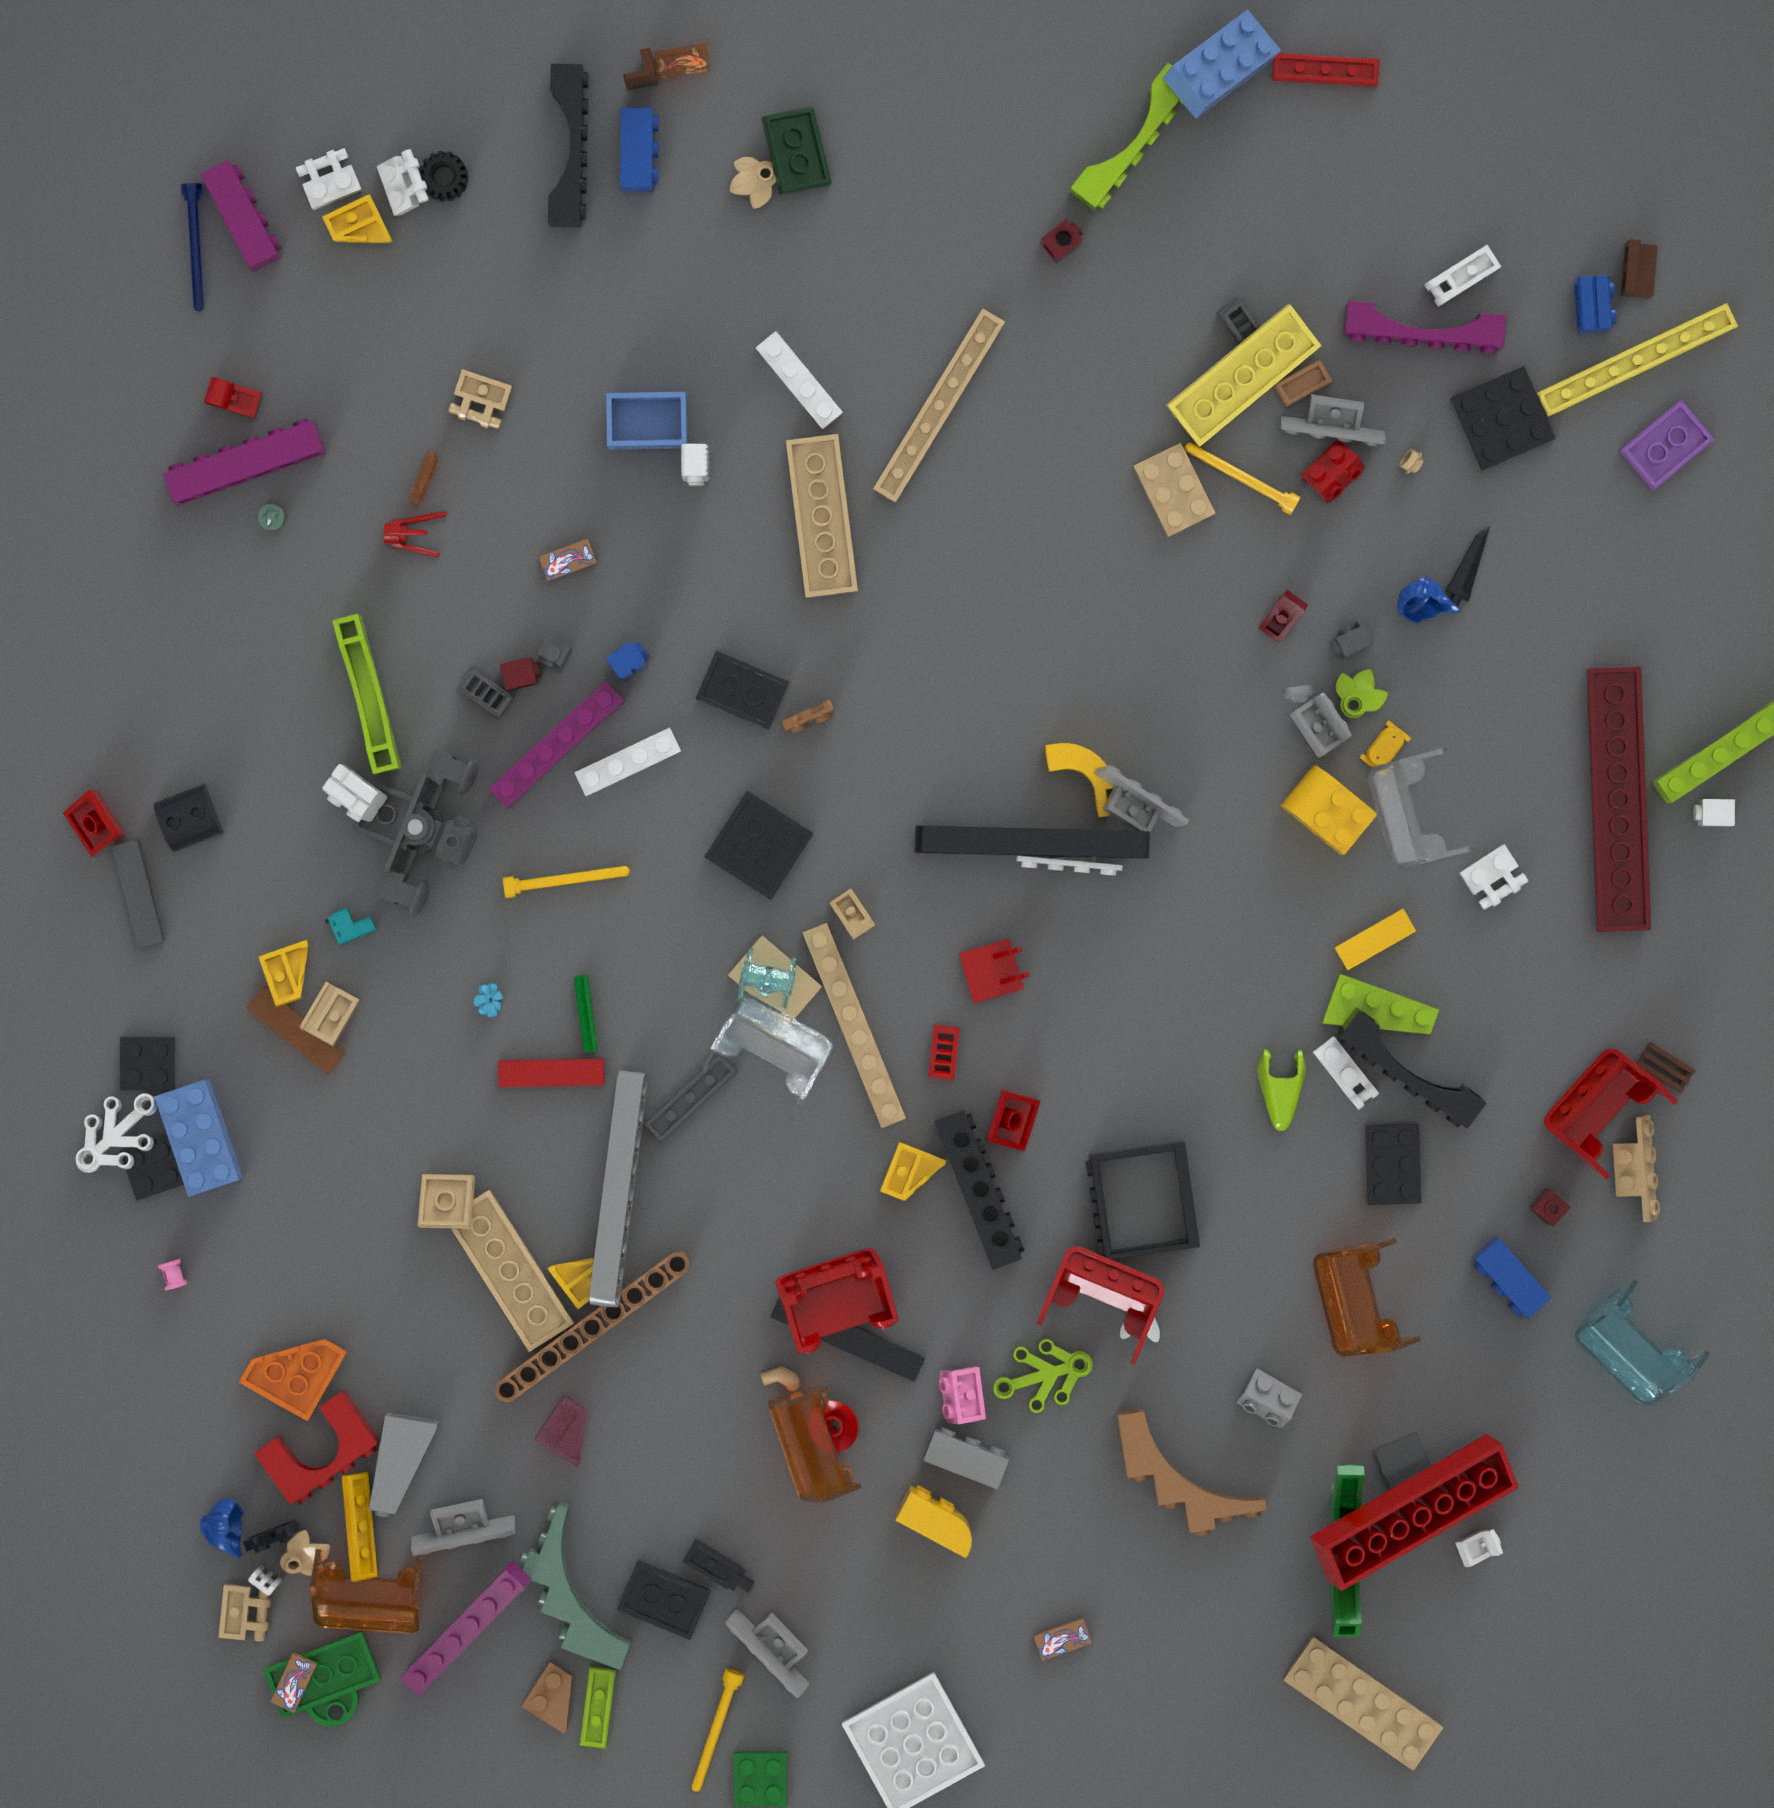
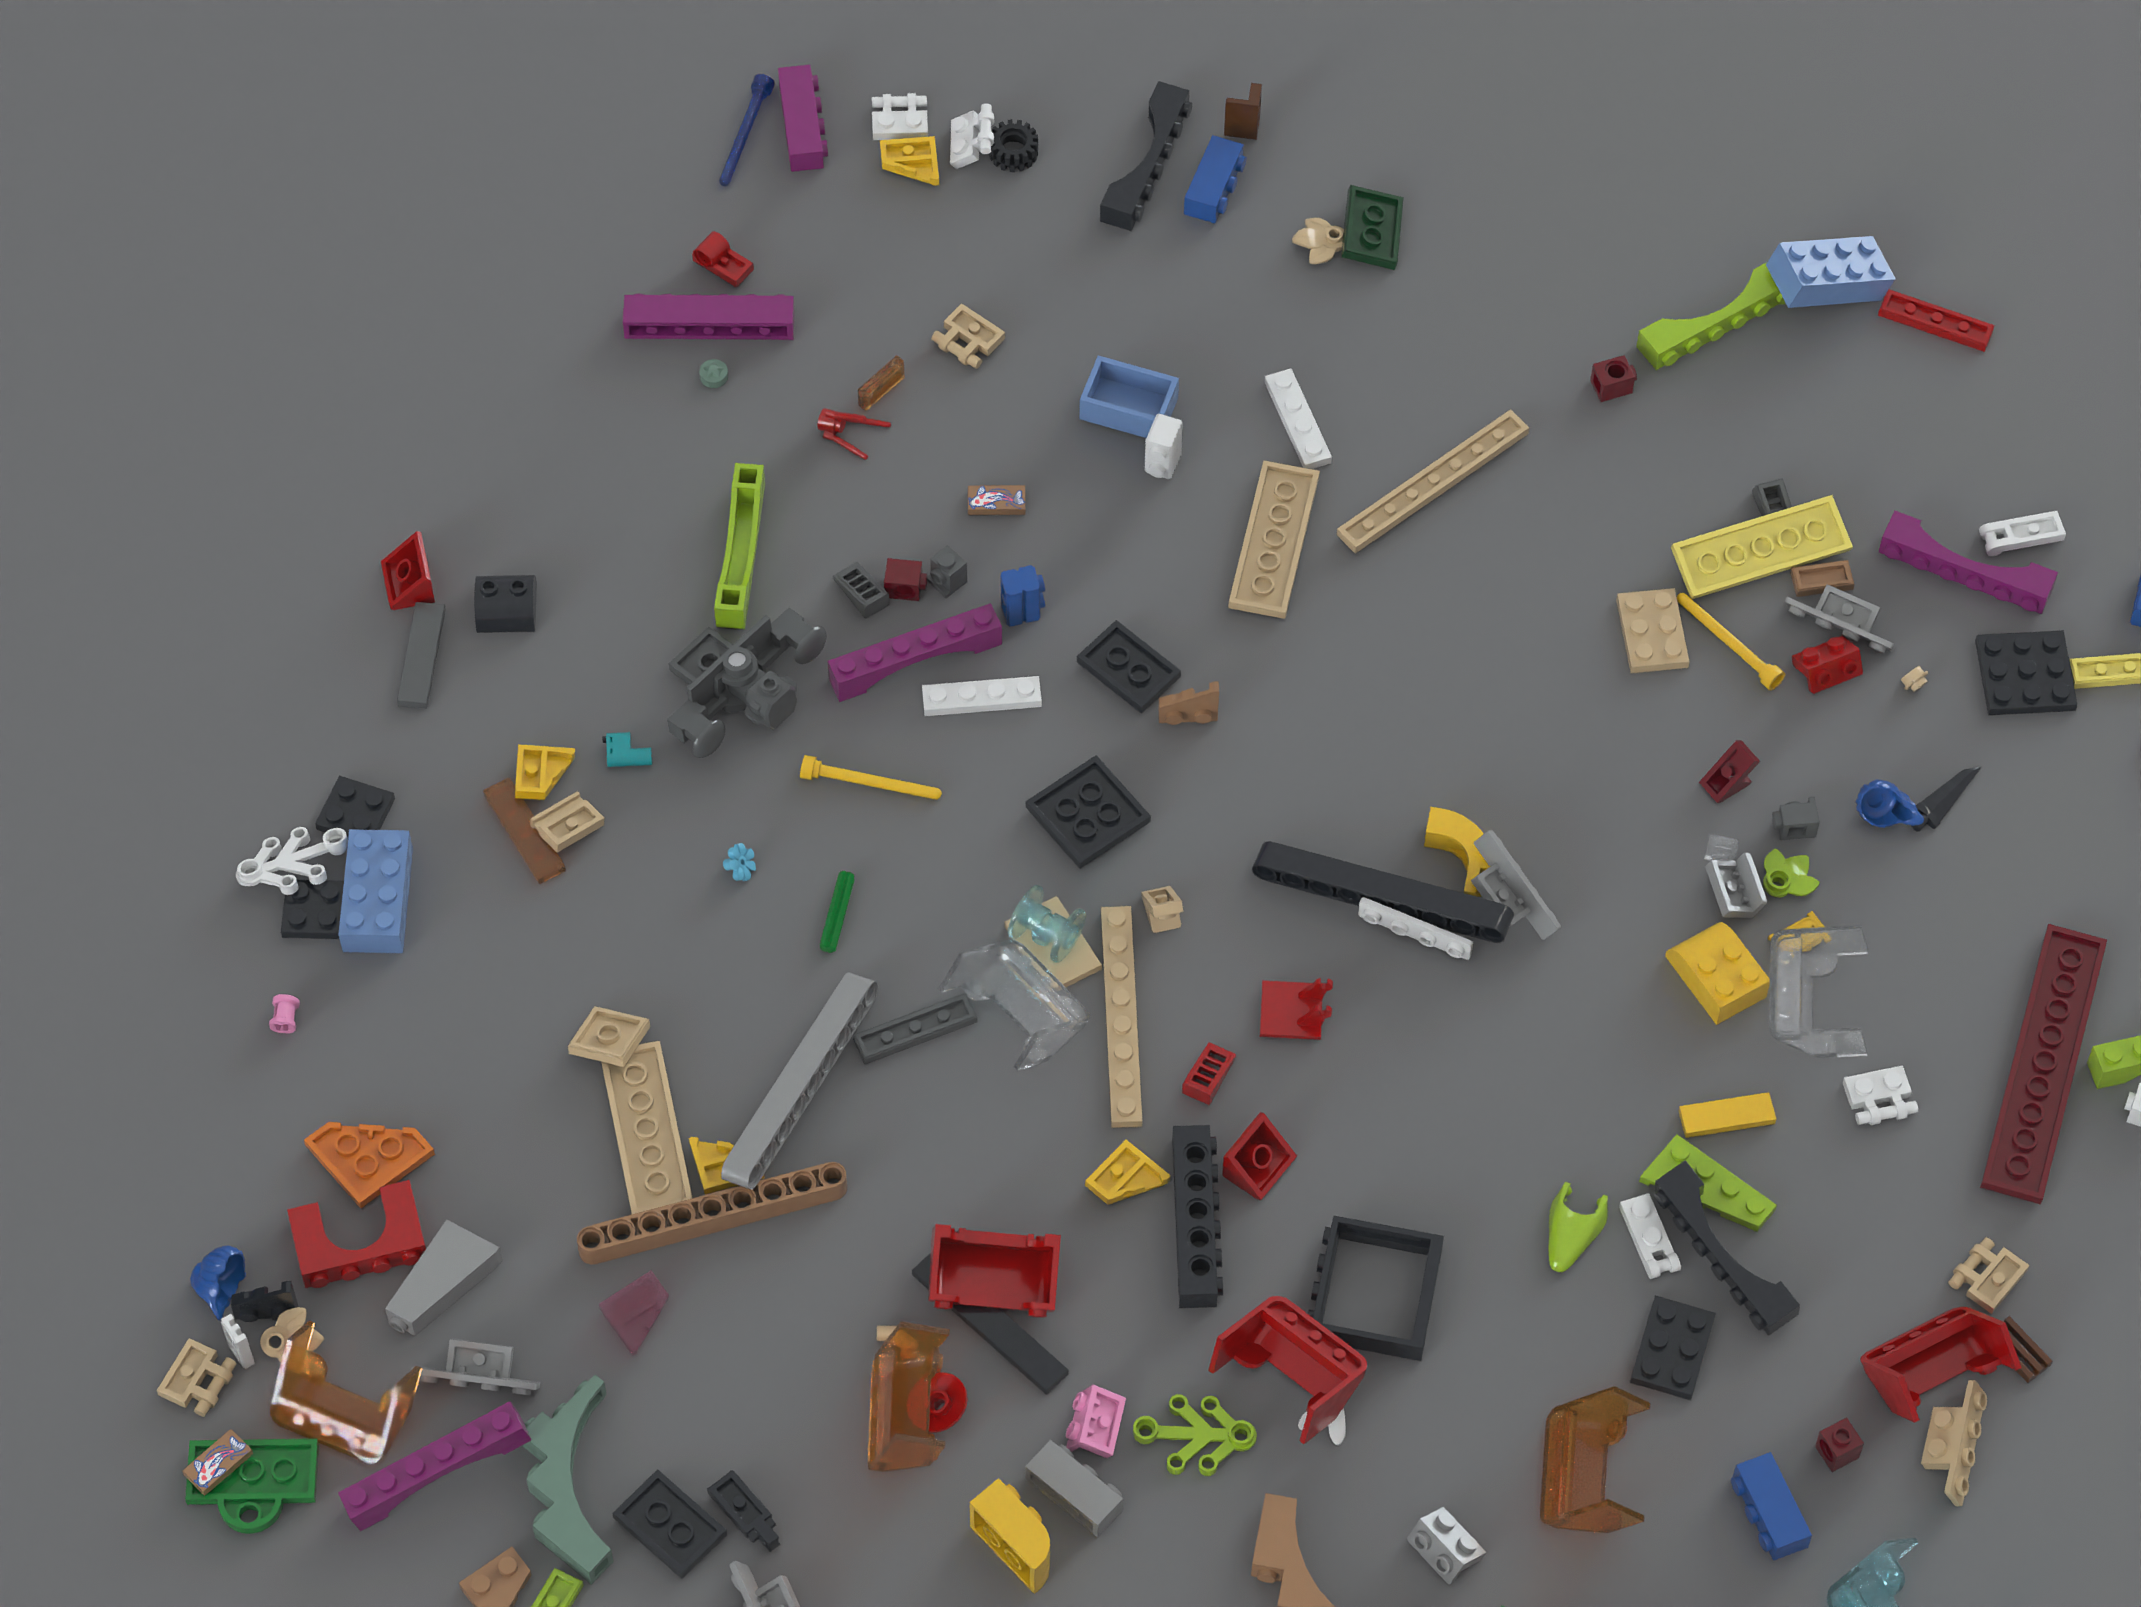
camera: 20 degrees right, 30 degrees down
(353, 792) = (686, 627): white brick -> none
(359, 1526) = (365, 1331): yellow tile -> none
(551, 1072) = (776, 956): red tile -> none
(682, 61) = (1288, 126): clear orange tile -> none
(1632, 1014) = (1996, 1280): none -> tan plate

